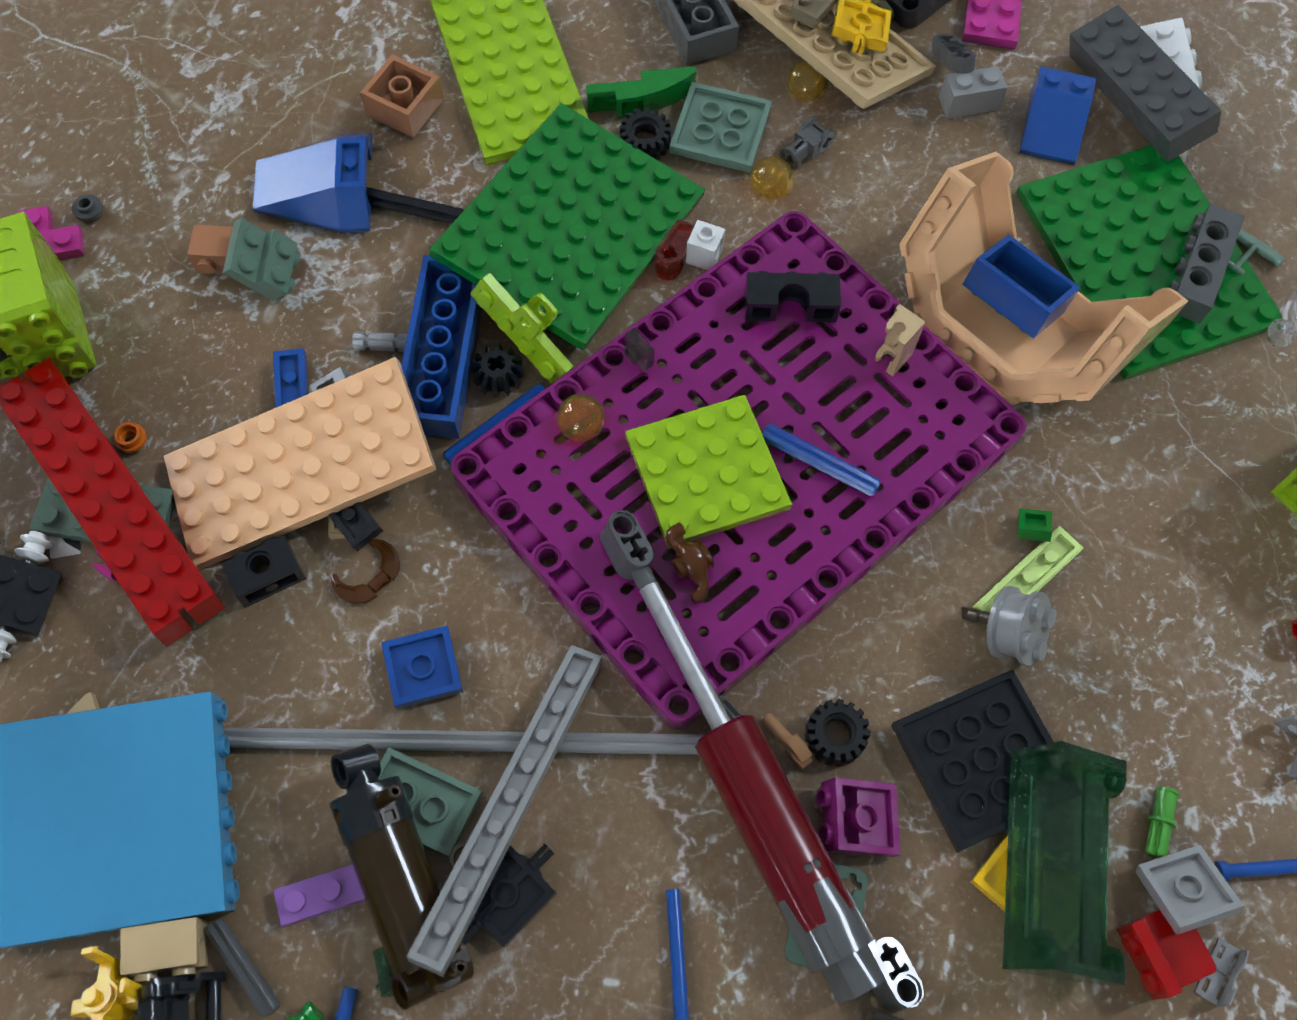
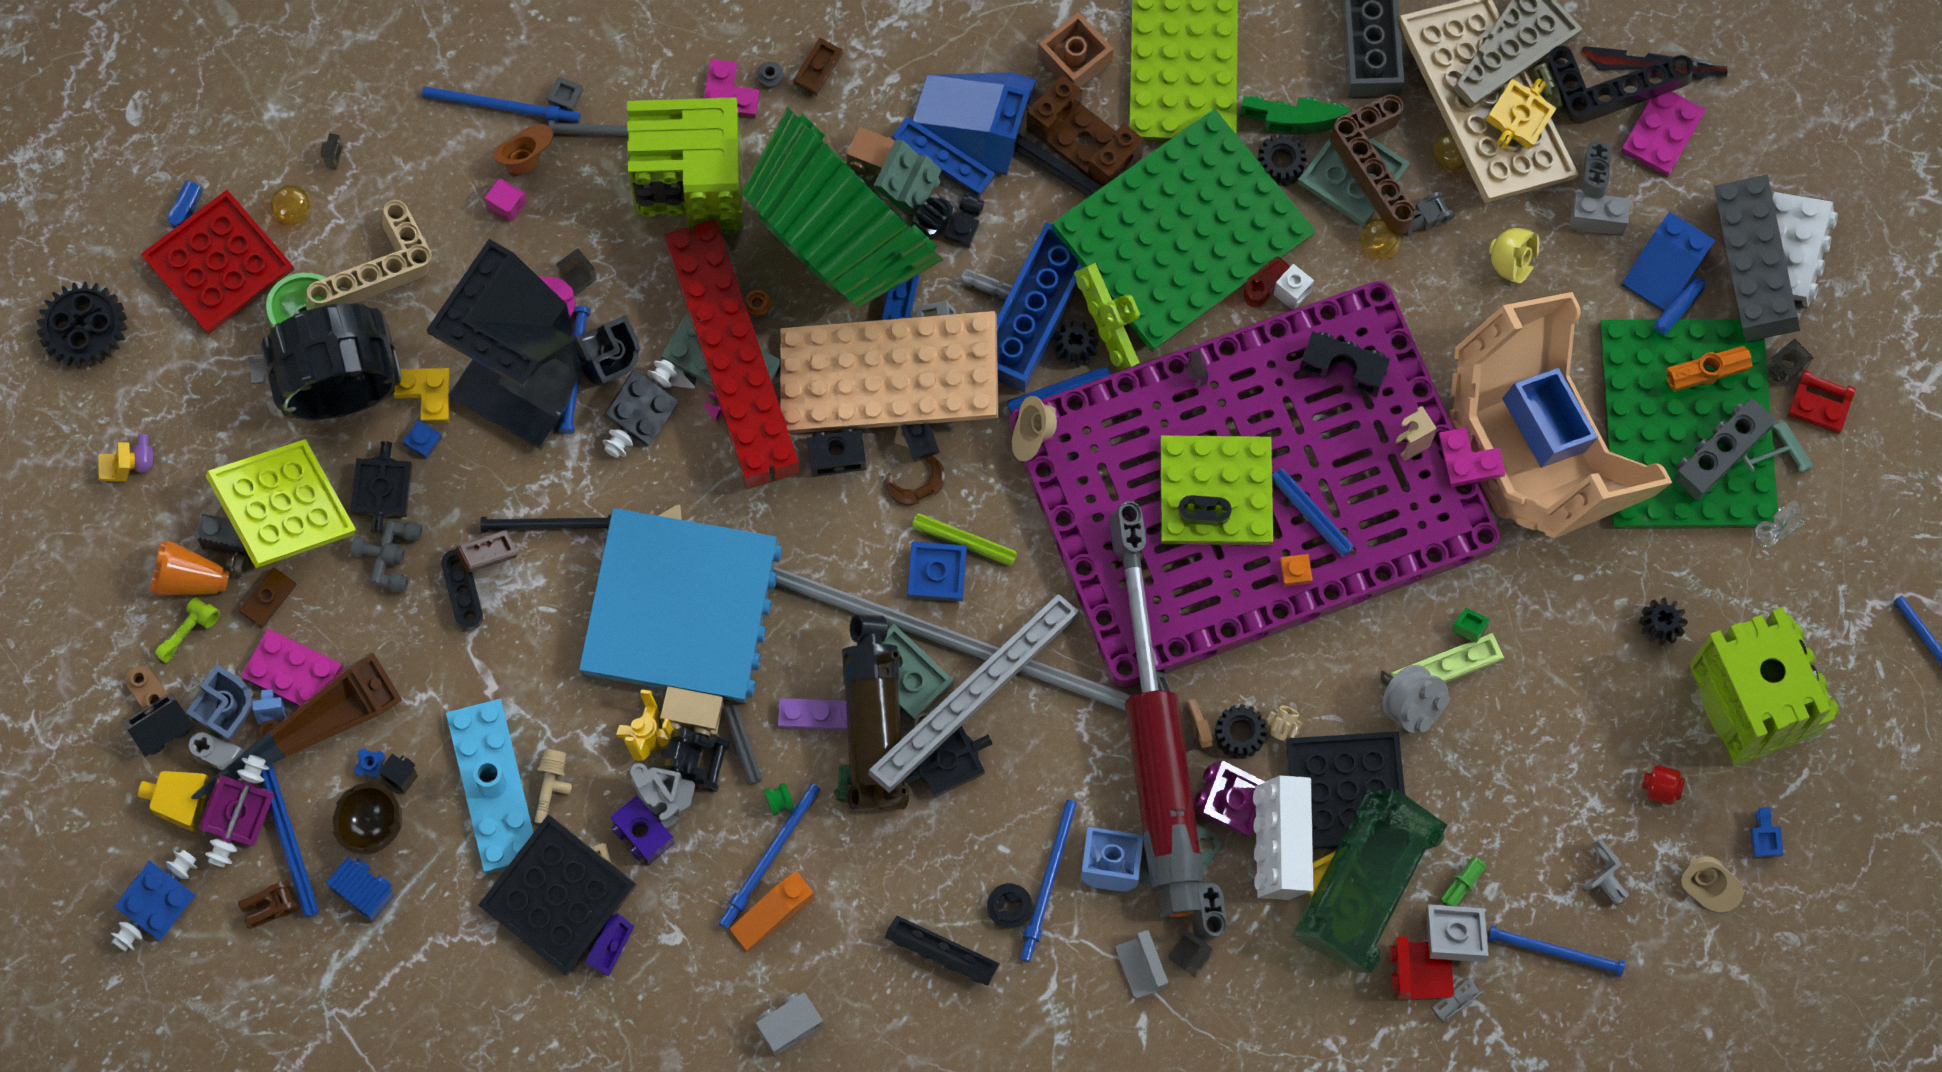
camera: 20 degrees right, 5 degrees up
(137, 185) = (818, 66): none -> reddish brown plate
(173, 298) = (833, 215): none -> green container
(300, 289) = (933, 216): none -> black gear
(308, 233) = (952, 161): none -> blue plate
(339, 294) = (964, 227): none -> black plate
(408, 164) = (1061, 118): none -> reddish brown plate
(438, 618) = (960, 537): none -> lime axle
(480, 466) = (1034, 426): none -> tan piece
(580, 417) = (1129, 411): clear yellow hair -> none
(691, 560) = (1174, 560): reddish brown piece -> none
(705, 492) = (1204, 503): none -> black beam
(713, 94) = (1371, 162): none -> reddish brown beam
(749, 949) = (1111, 859): none -> medium blue slope
(829, 527) = (1296, 570): none -> orange plate
(883, 705) = (1284, 723): none -> tan gear
(908, 149) = (1513, 253): none -> light yellow cylinder
(947, 848) = (1283, 838): none -> white brick
(956, 359) = (1468, 467): none -> dark pink plate
(1088, 149) = (1679, 305): none -> blue axle
(1149, 193) = (1694, 373): none -> orange piece
(1215, 168) = (1794, 353): none -> clear smoke brick
(1227, 453) = (1661, 630): none -> black gear
(1261, 205) = (1818, 409): none -> red plate

